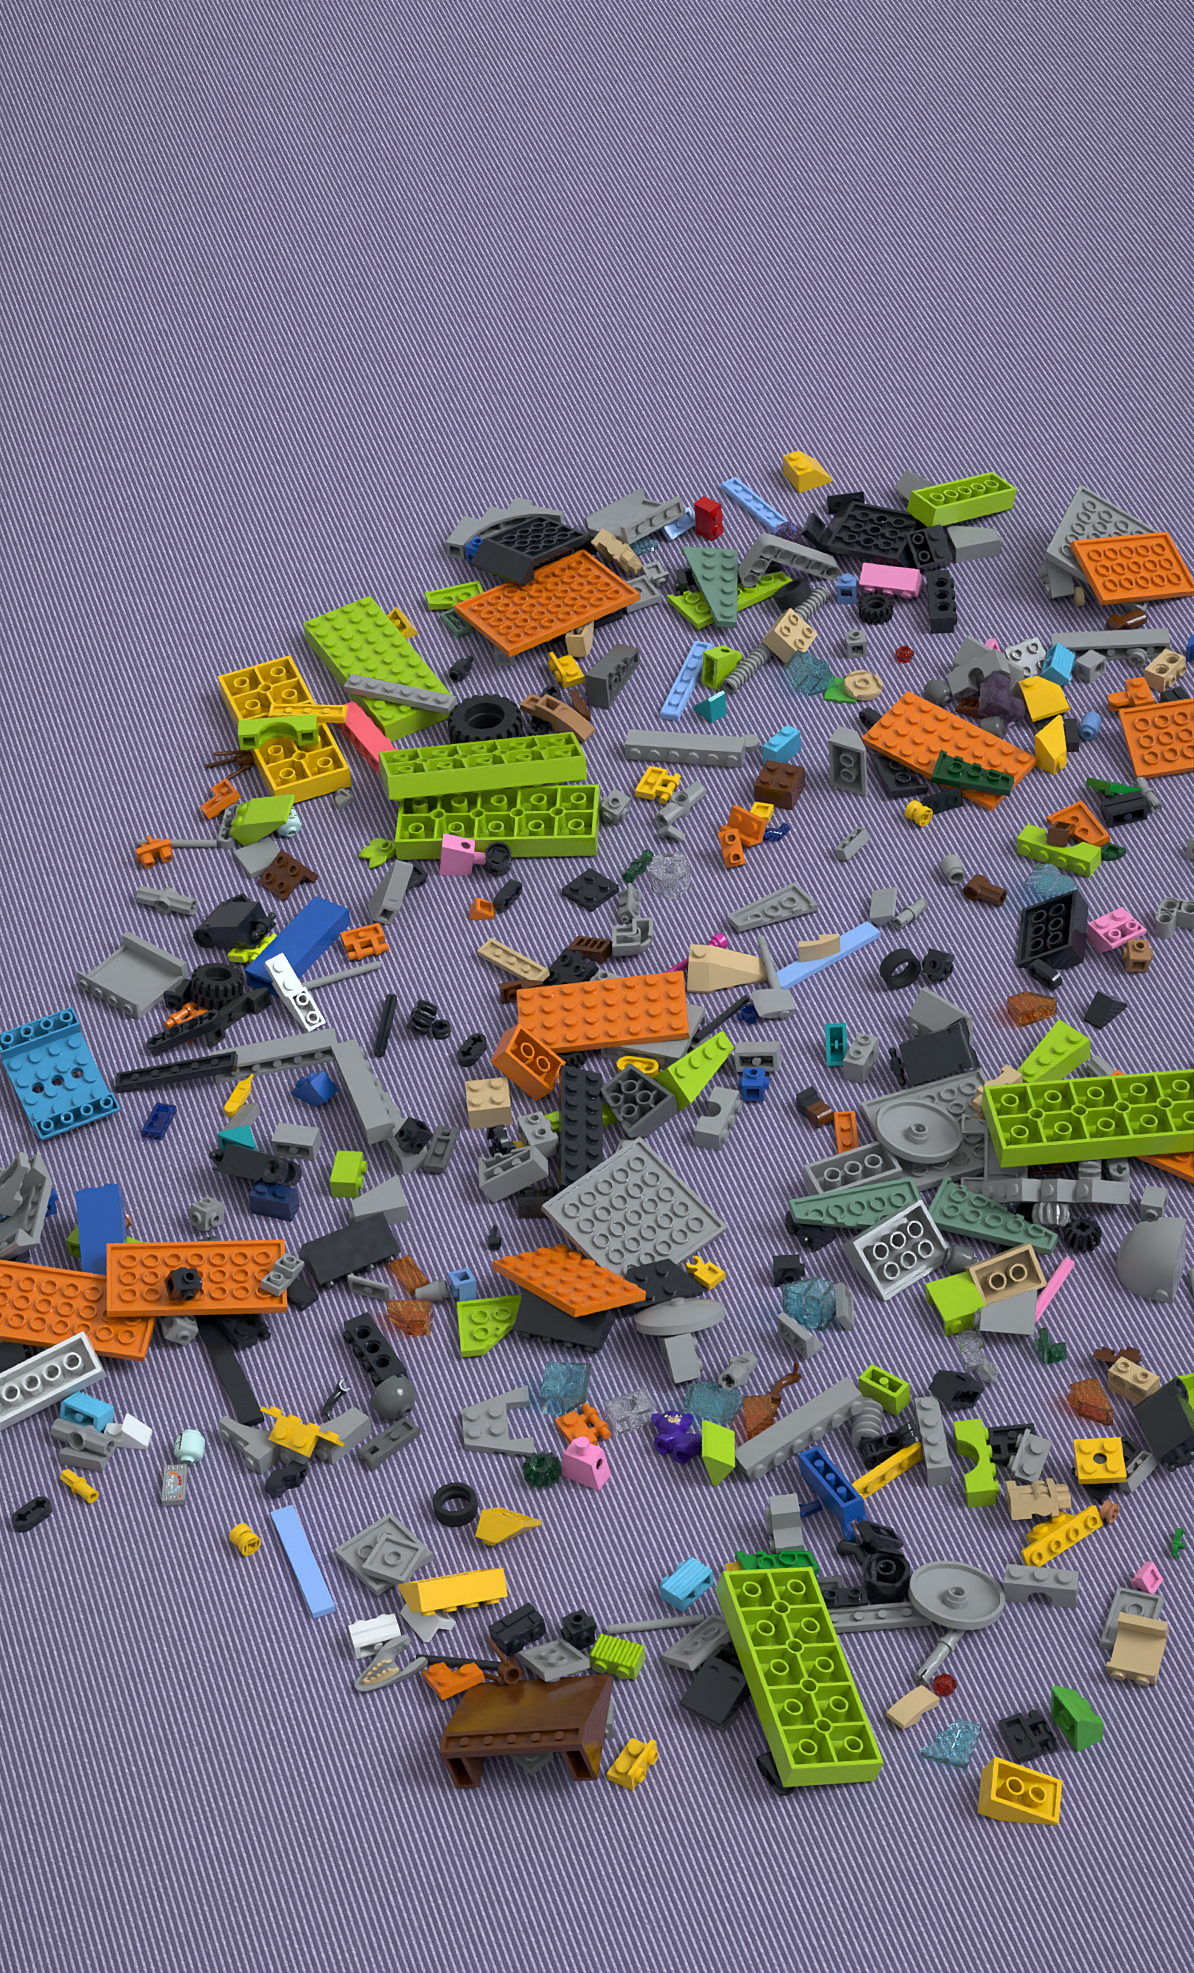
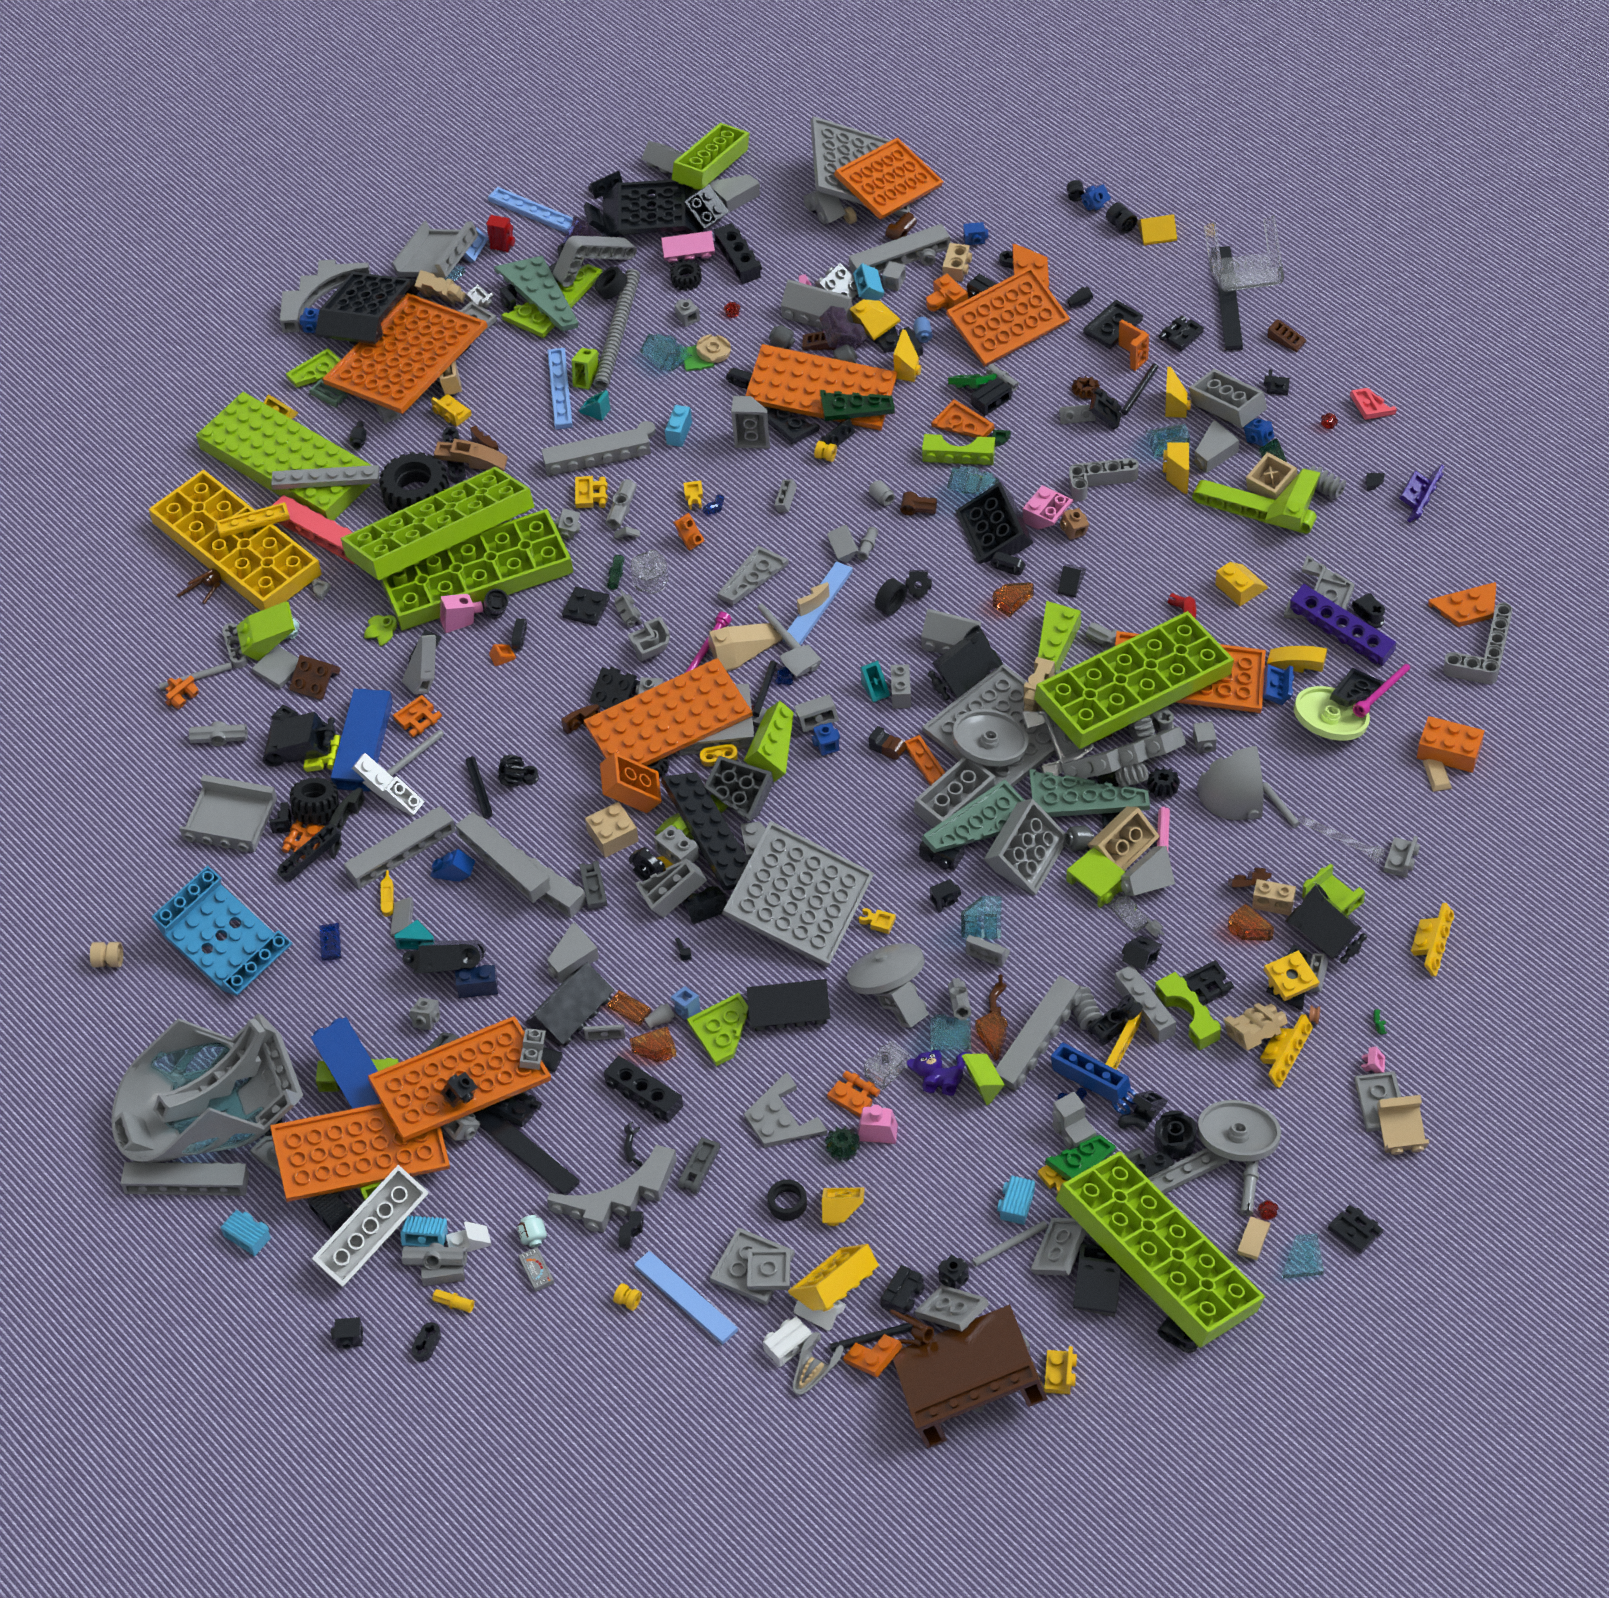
camera: 25 degrees left, 10 degrees up
(176, 1072) = (322, 892): black tile -> none
(224, 796) = (215, 621): orange plate -> none
(255, 732) = (257, 537): lime arch -> none
(295, 1435) = (625, 1189): yellow bracket -> none
(296, 1141) = (464, 920): light grey brick -> none
(348, 1174) = (525, 934): lime brick -> none
(394, 1397) = (686, 1125): dark grey cylinder -> none
(413, 1136) = (572, 883): black brick -> none
(469, 1049) = (563, 785): black beam -> none
(512, 961) = (558, 693): tan plate -> none
(564, 1386) = (822, 1063): clear light blue slope -> none
(568, 1280) = (778, 968): orange plate -> none
(600, 949) = (626, 662): reddish brown slope -> none
(610, 675) = (495, 403): dark grey wedge -> none
(617, 1657) = (997, 1284): lime brick -> none
(662, 1283) = (845, 946): black wing -> none
(723, 1107) = (813, 791): light grey arch -> none
(750, 826) = (686, 503): orange bracket -> none
(779, 784) = (695, 461): reddish brown brick -> none
(789, 635) = (631, 323): tan brick -> none
(804, 471) = (554, 166): yellow slope -> none
(844, 1306) = (1010, 912): light grey tile -> none
(847, 585) = (653, 260): medium blue brick -> none
(885, 1389) = (1084, 972): lime brick -> none
(964, 678) = (799, 318): light grey arch -> none
(1018, 1794) = (1377, 1281): yellow slope -> none
(1030, 1457) = (1230, 991): light grey bracket -> none
(1050, 1352) = (1189, 891): clear green bracket -> none
(1057, 1583) = (1284, 1098): light grey arch -> none
(1060, 833) = (955, 434): reddish brown slope -> none
(1075, 1718) = (1386, 1201): bright green slope -> none

